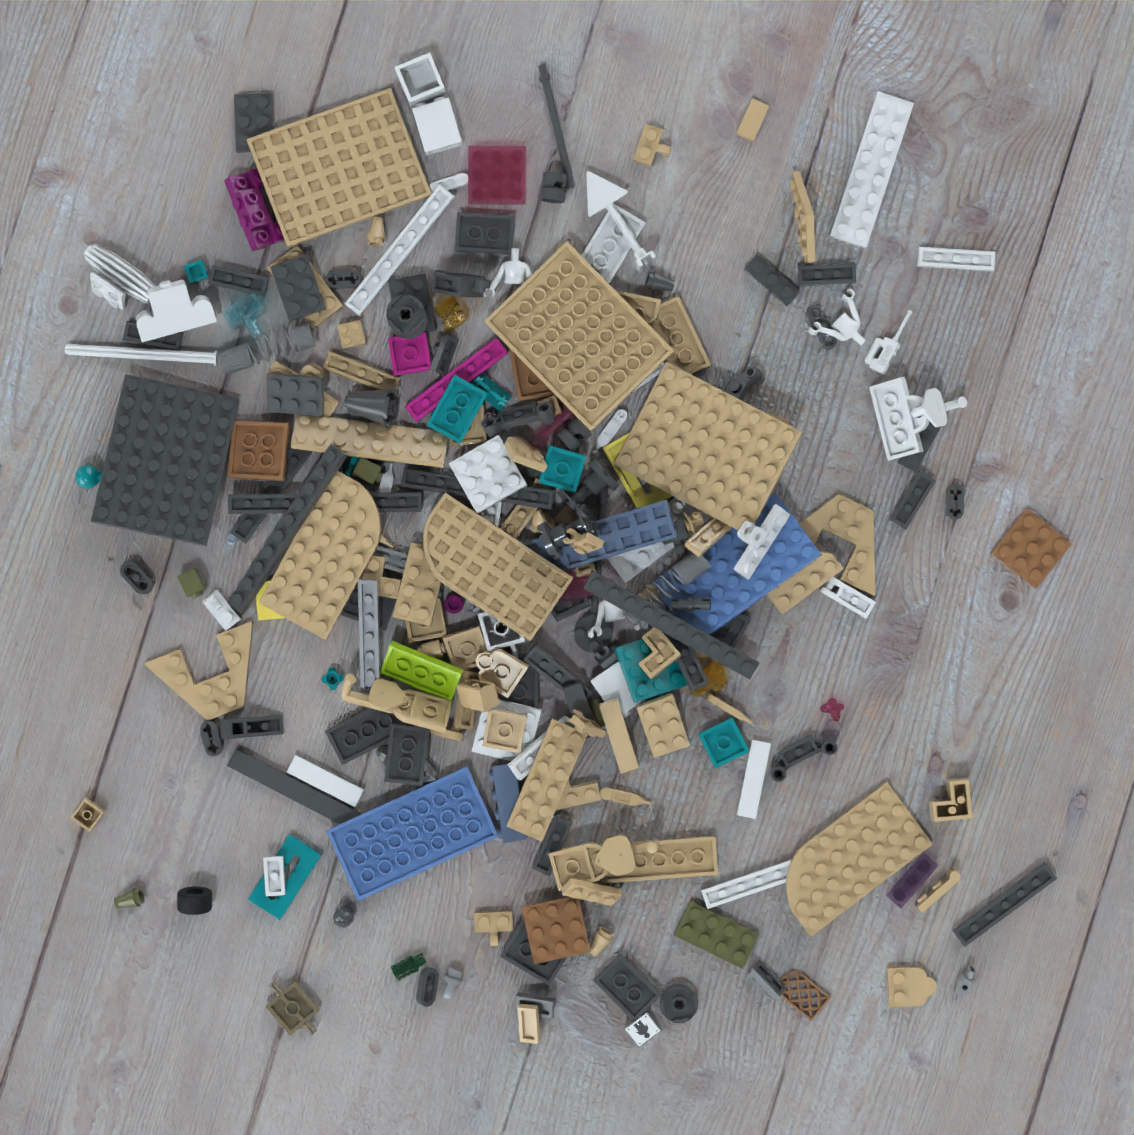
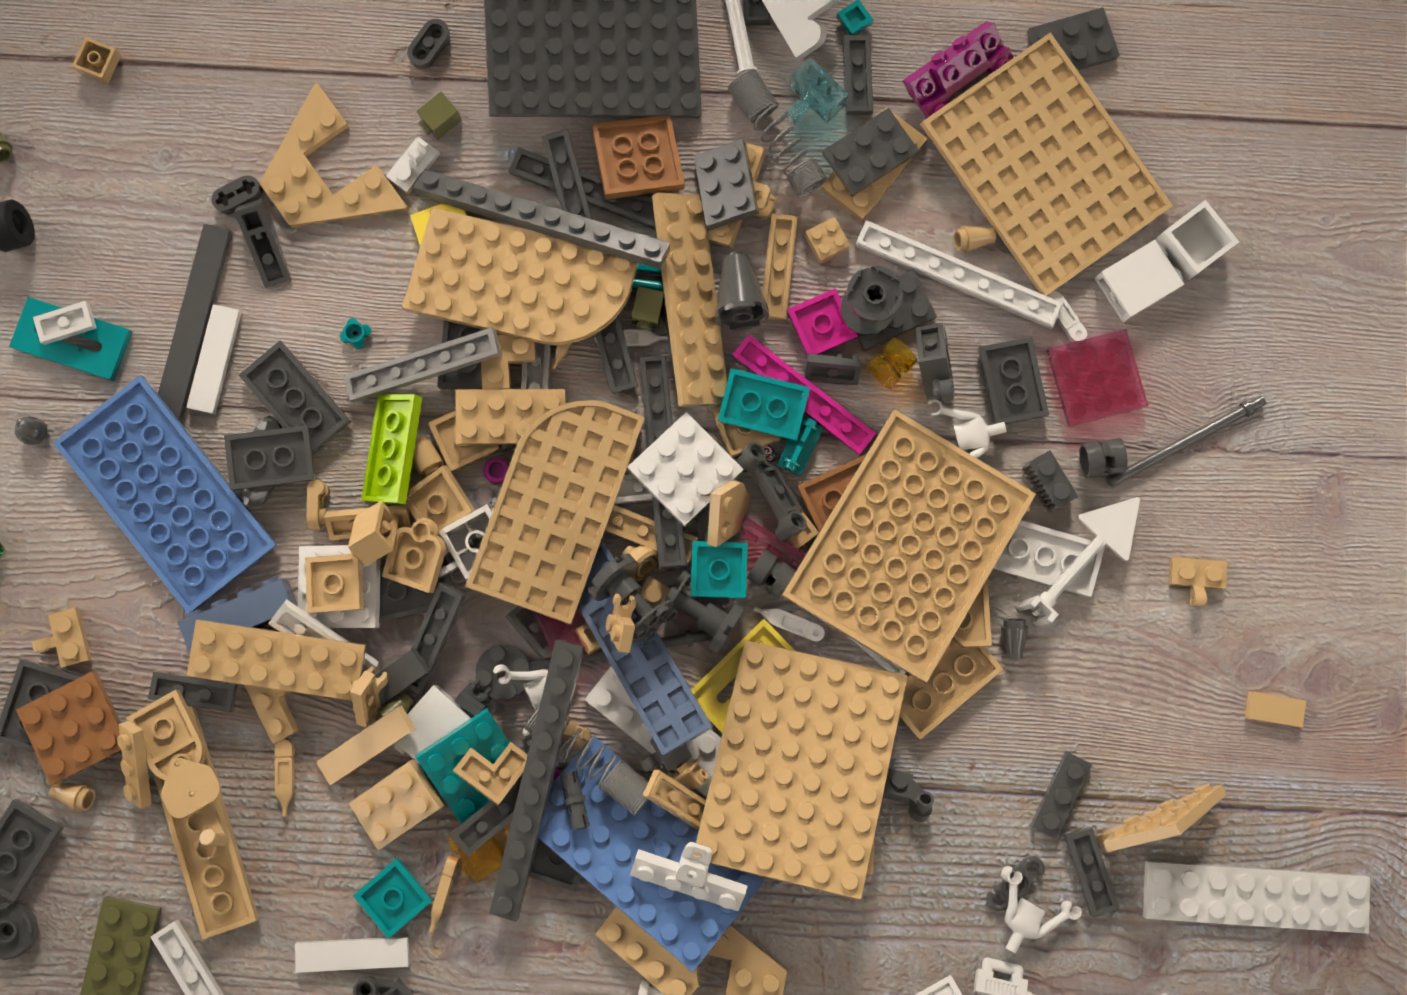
camera: 75 degrees right, 5 degrees down
(343, 274) = (892, 213): dark grey beam -> none
(406, 705) = (336, 464): tan plate -> none
(560, 228) = (1050, 481): none -> dark grey brick

